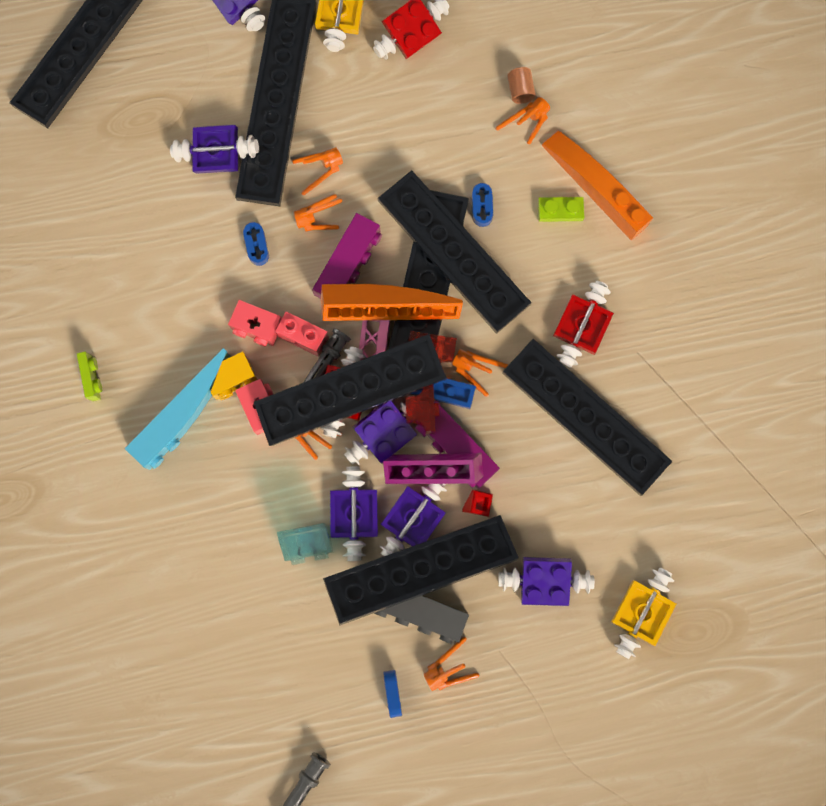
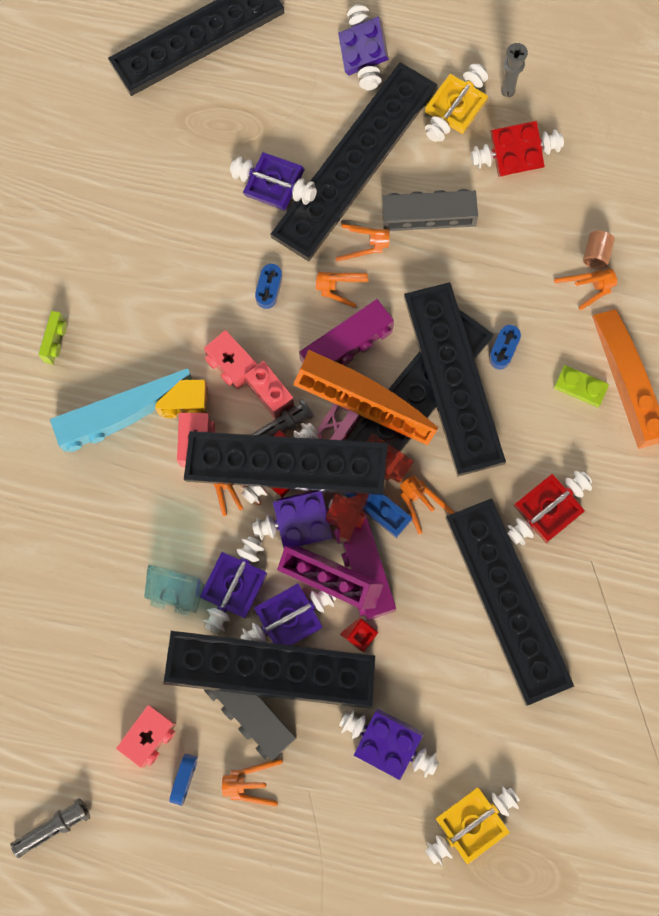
camera: 30 degrees right, 5 degrees down
(337, 687) = (133, 743): none -> coral brick
(362, 114) = (429, 210): none -> dark grey brick

